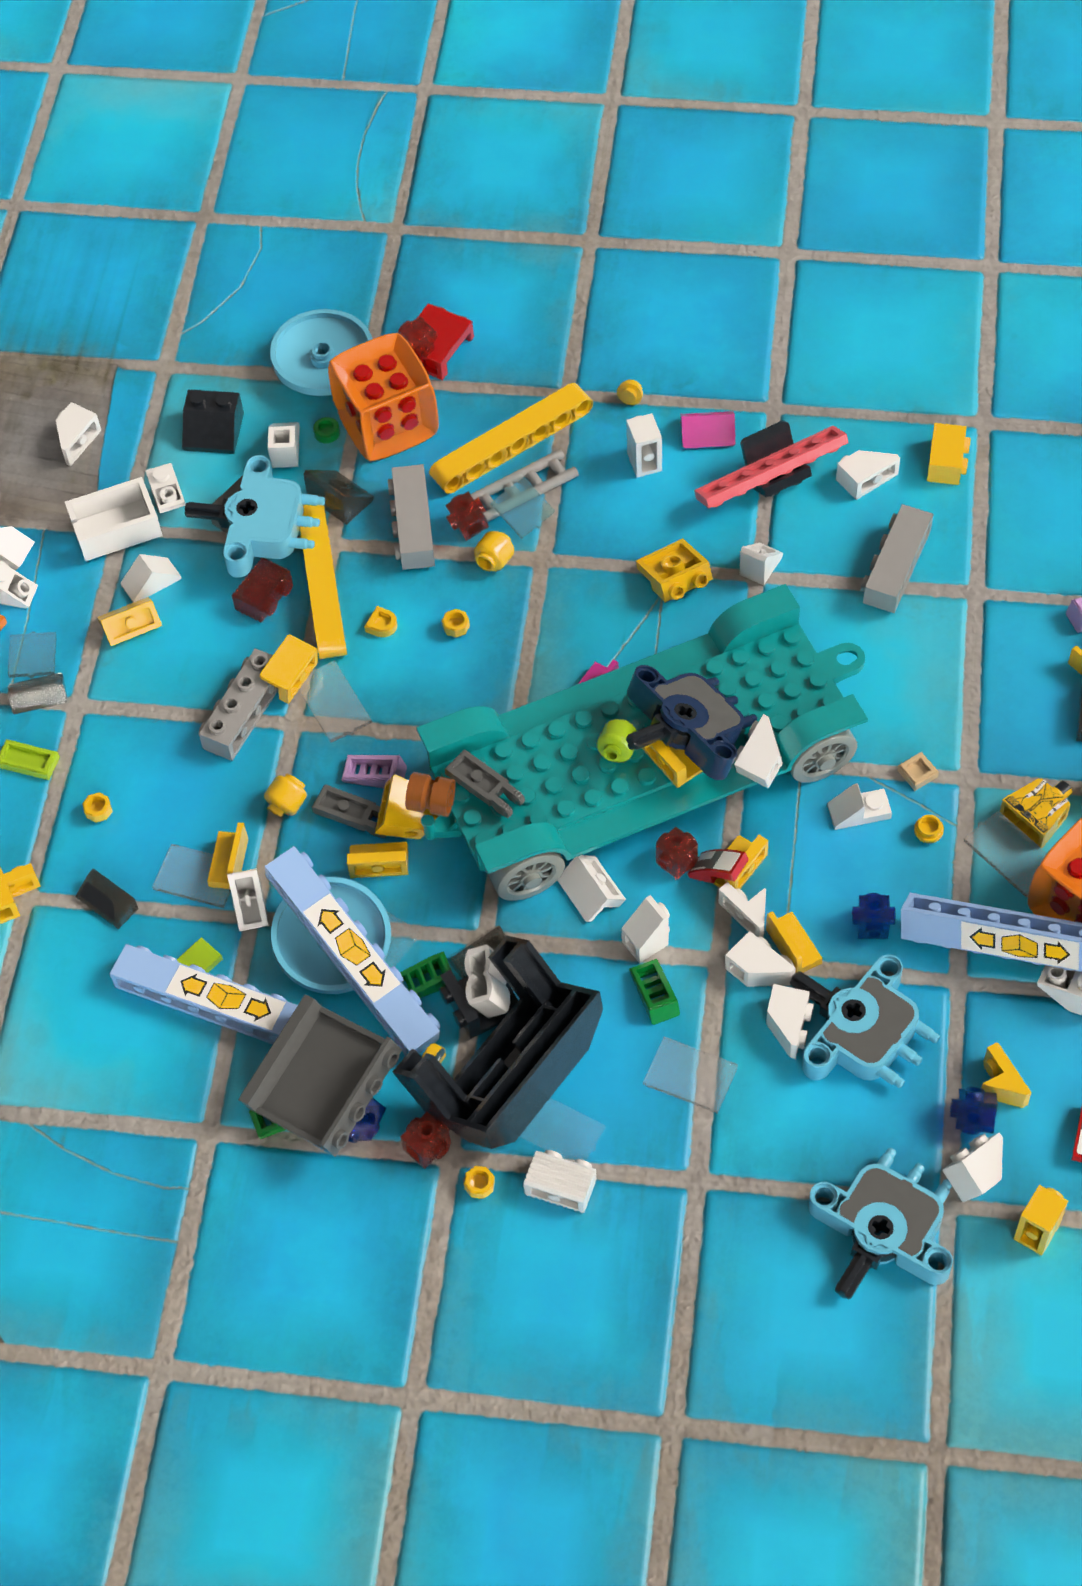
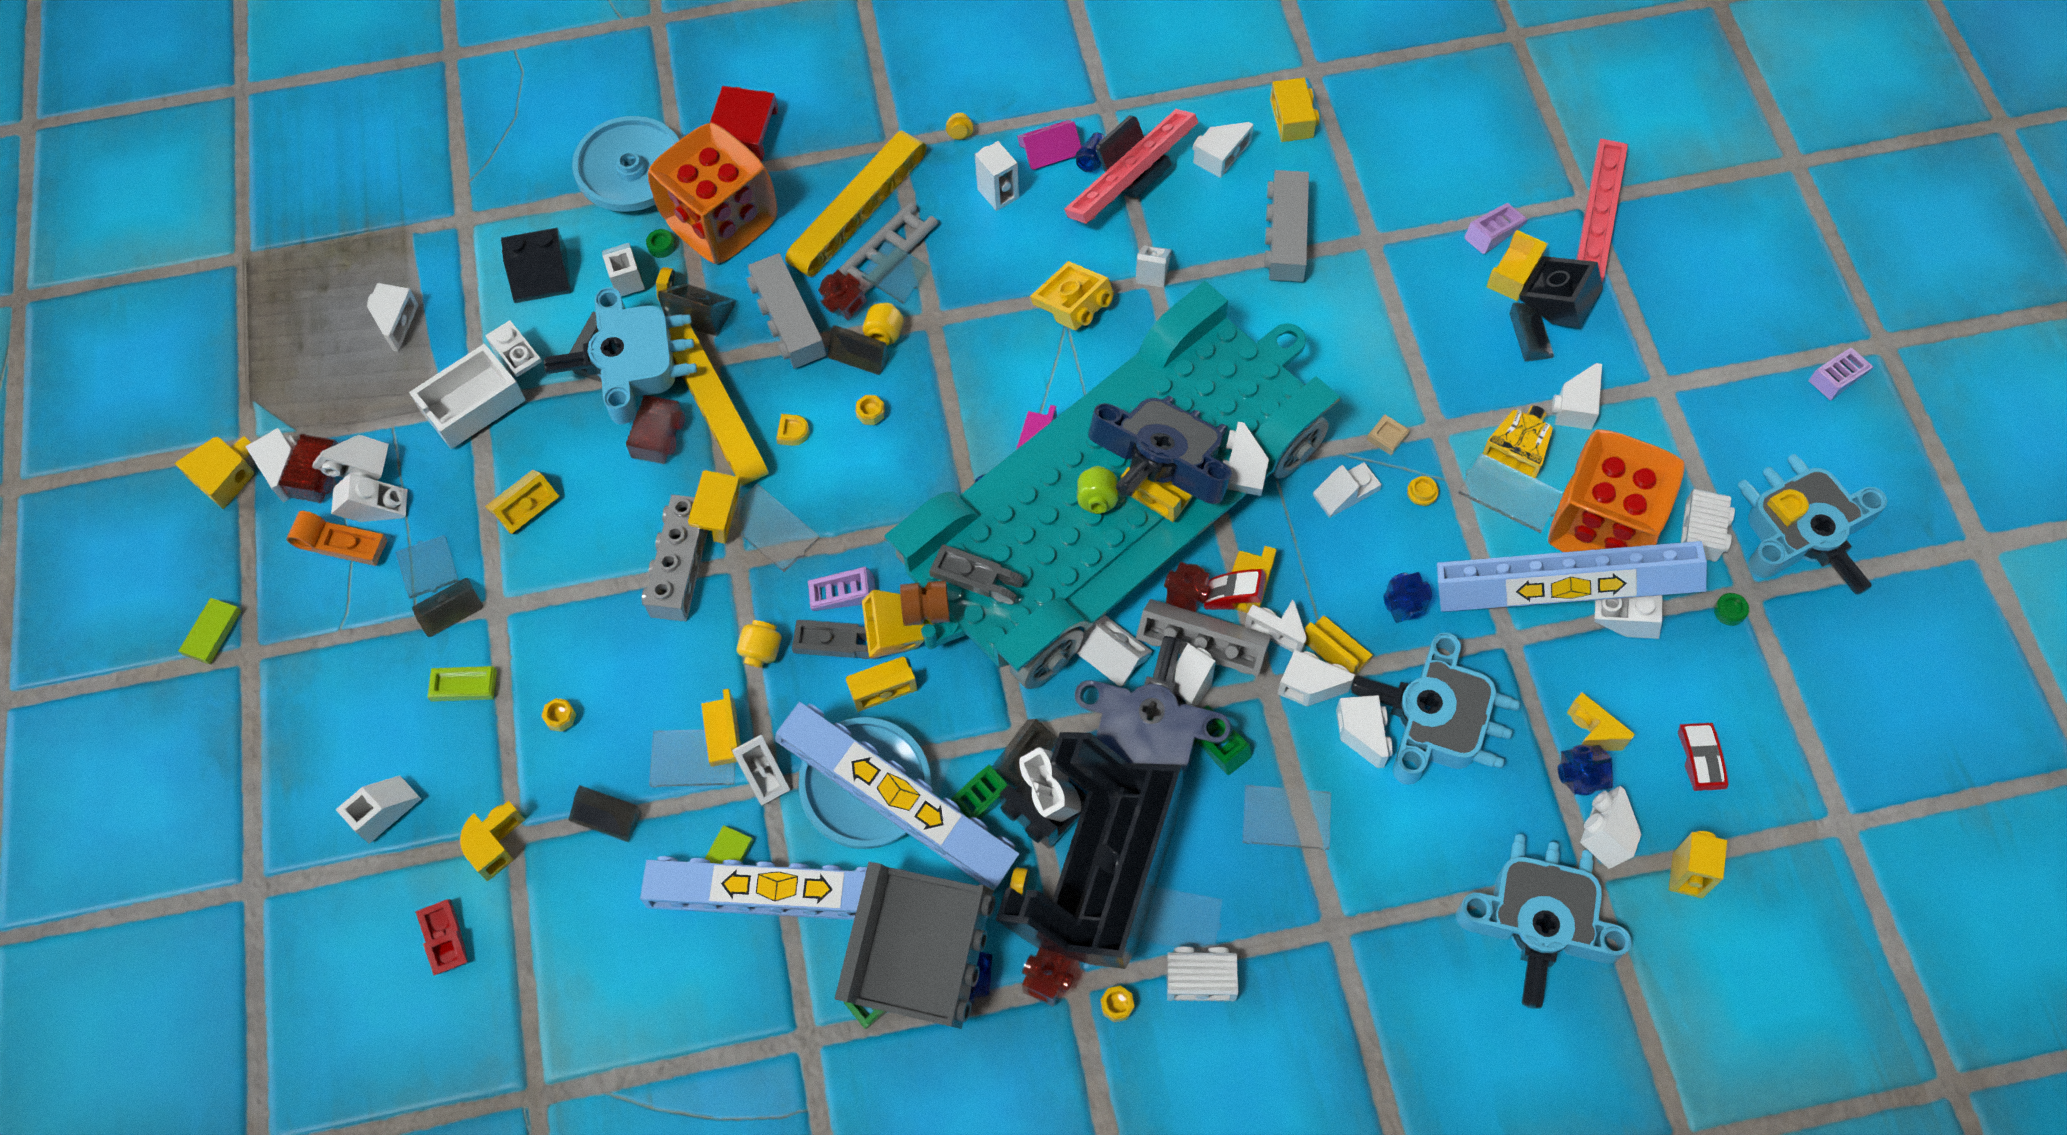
camera: 20 degrees left, 5 degrees up
(149, 576) = (526, 448): white slope -> none
(318, 461) = (665, 279): none -> yellow tile
(419, 336) = (730, 119): clear red brick -> none
(464, 568) = (857, 350): none -> clear smoke slope
(578, 962) = (1168, 737): none -> dark blue piece
(686, 905) = (1226, 642): none -> light grey brick
(733, 448) = (1088, 155): none -> clear blue cone

